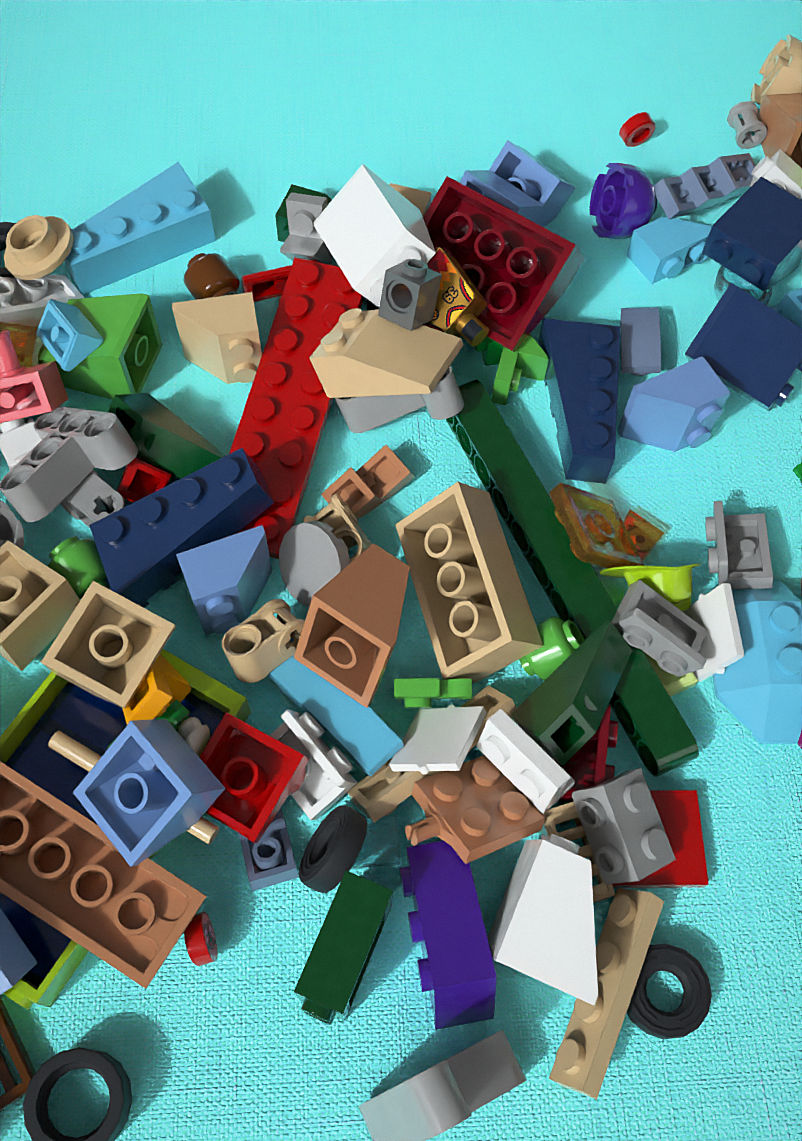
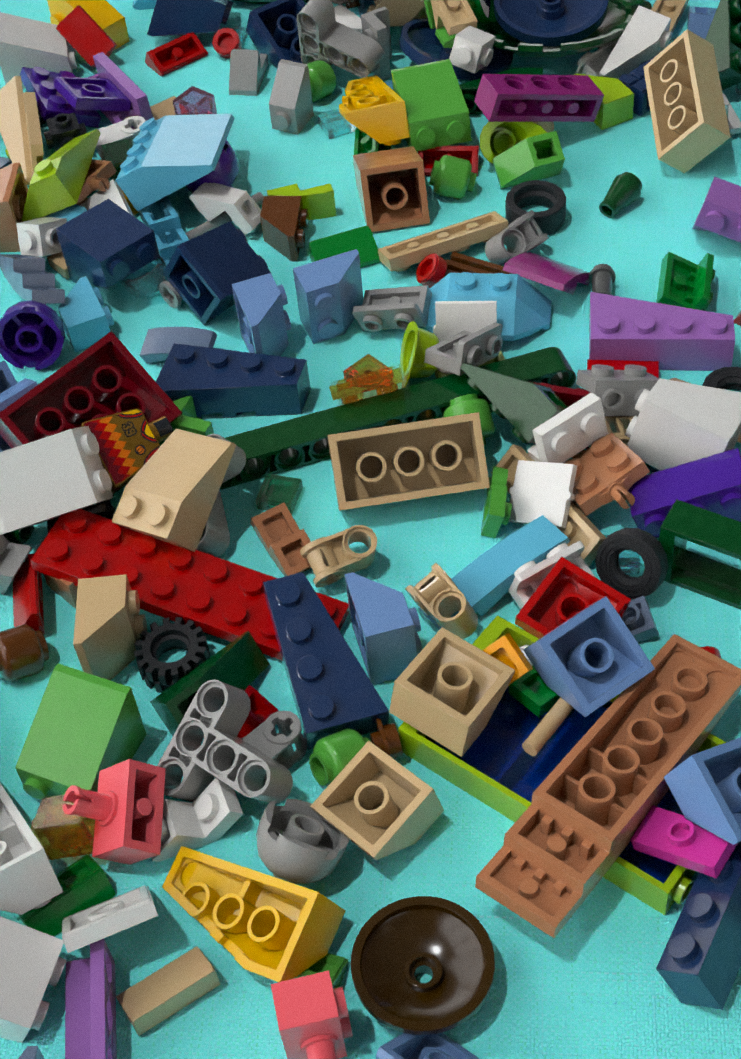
camera: 75 degrees left, 15 degrees down
(67, 334) = (77, 750): medium azure slope -> none
(208, 388) = (166, 638): none -> black tyre
(310, 559) = (373, 557): light grey tile -> none
(355, 624) = (444, 521): nougat slope -> none
(406, 307) = (140, 454): dark grey brick -> none
(437, 470) = (278, 490): none -> clear green tile
(736, 468) = (328, 293): none -> medium blue slope
(751, 878) = (659, 332): none -> medium lavender wedge

